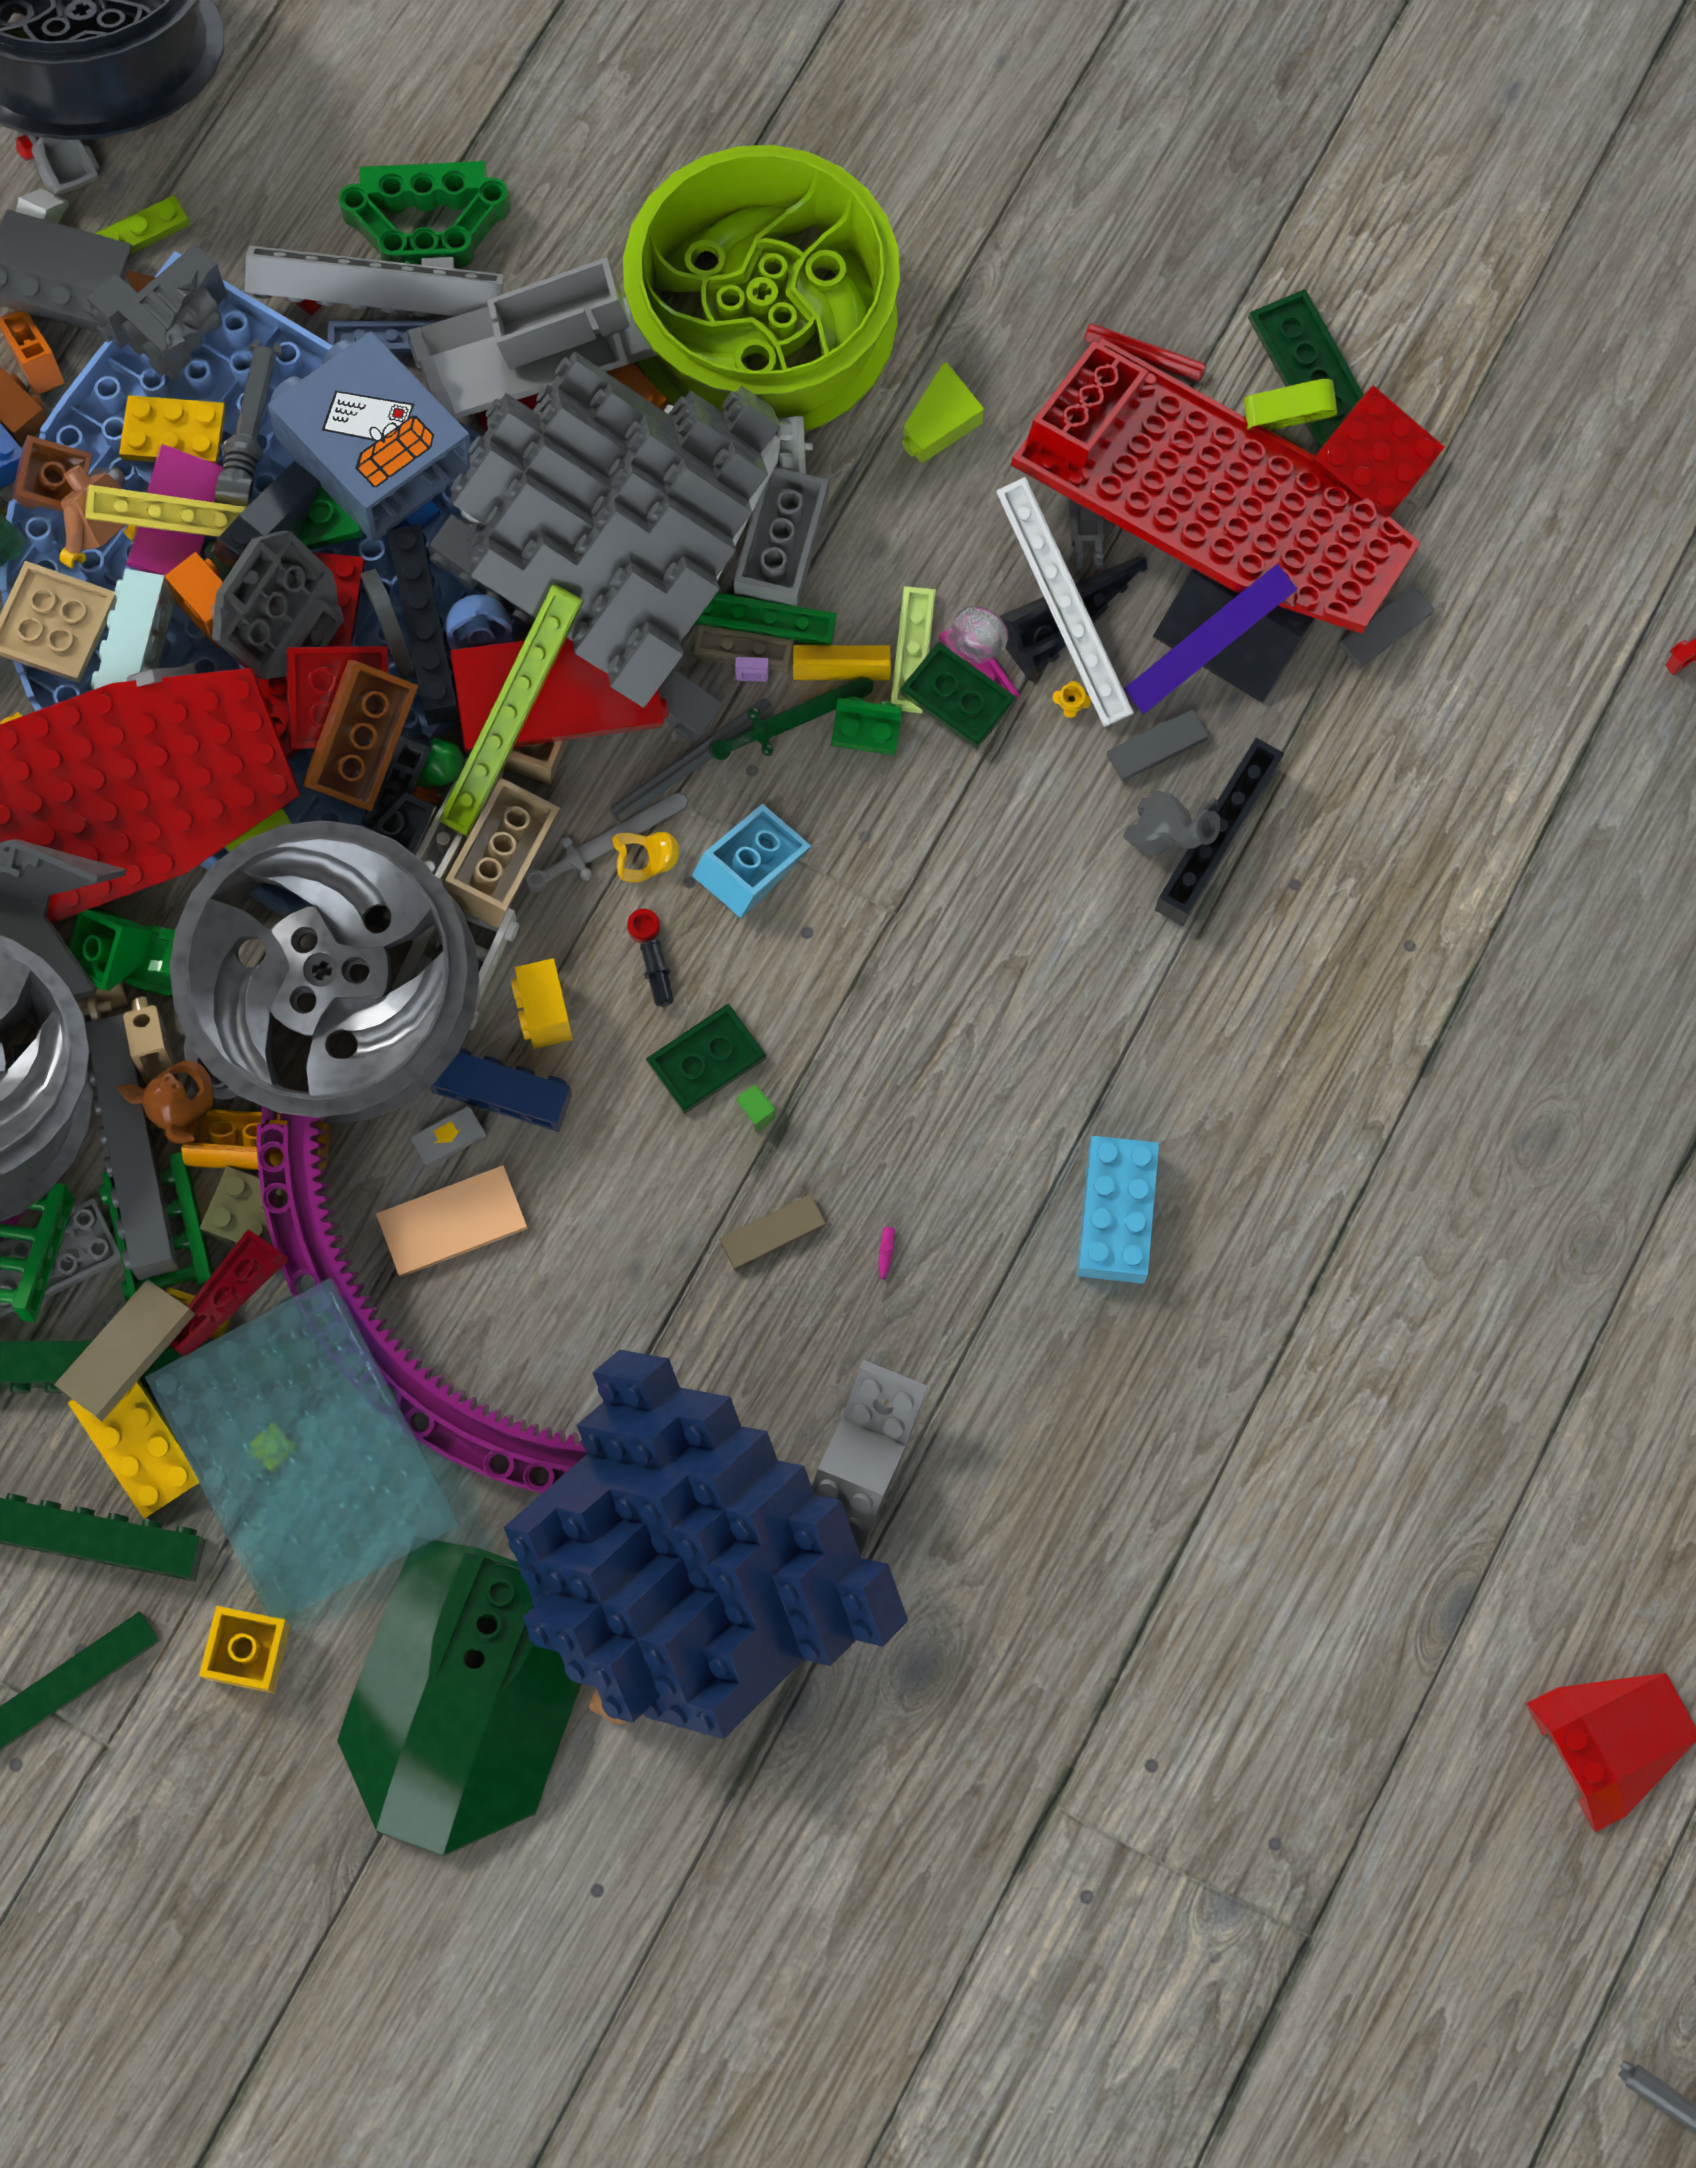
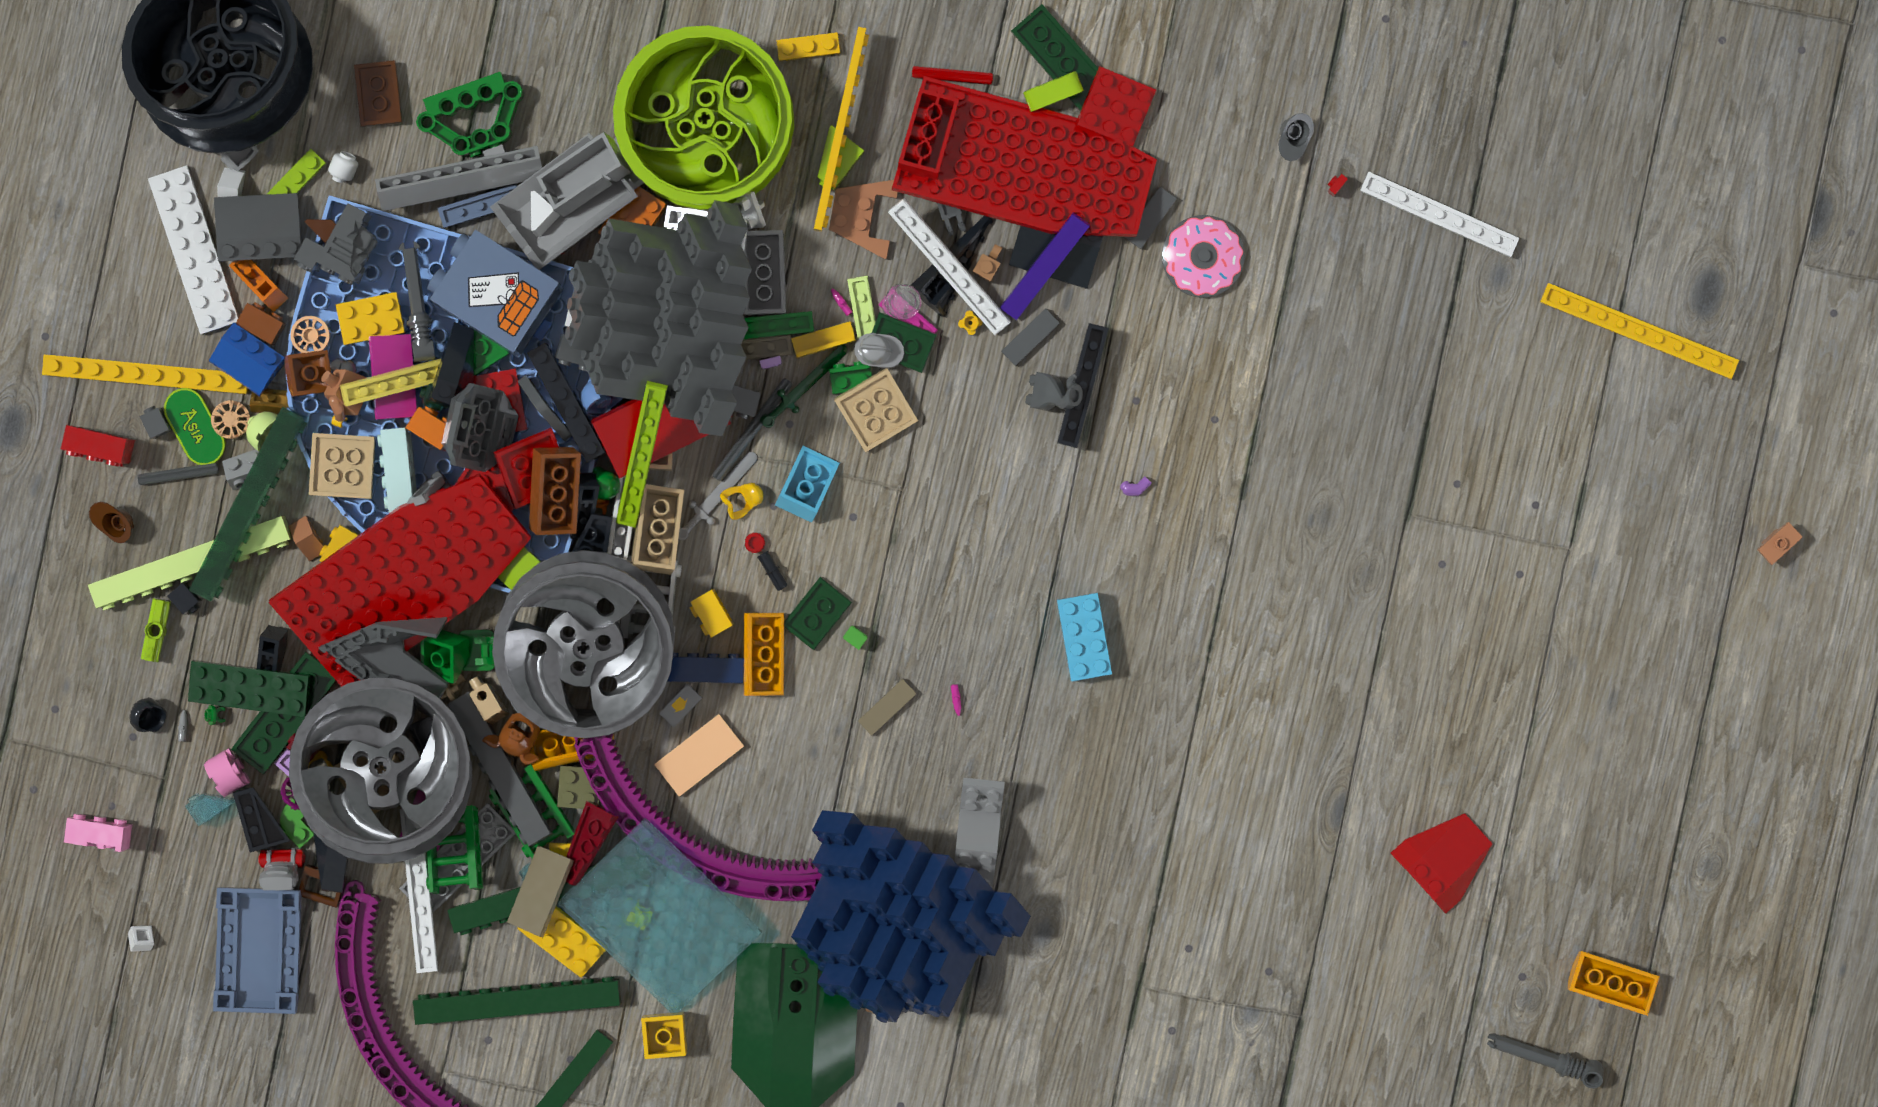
camera: 15 degrees left, 15 degrees up
(74, 427) = (310, 334): none -> light nougat wheel
(211, 229) = (343, 167): none -> white head
(298, 150) = (378, 93): none -> reddish brown plate
(478, 357) = (541, 214): none -> white slope
(603, 1091) = (763, 654): none -> light orange brick
(885, 618) = (841, 302): none -> dark pink helmet
(890, 779) = (875, 409): none -> tan plate
(922, 692) = (879, 350): none -> light grey piece
(941, 499) = (854, 211): none -> nougat wing
(944, 258) = (808, 46): none -> yellow plate
(953, 377) = (843, 121): none -> yellow plate
(1123, 621) = (987, 265): none -> medium nougat brick
(1259, 1011) = (1135, 489): none -> medium lavender arm
(1453, 703) = (1203, 256): none -> bright pink dish
(1640, 566) = (1295, 136): none -> dark grey piece

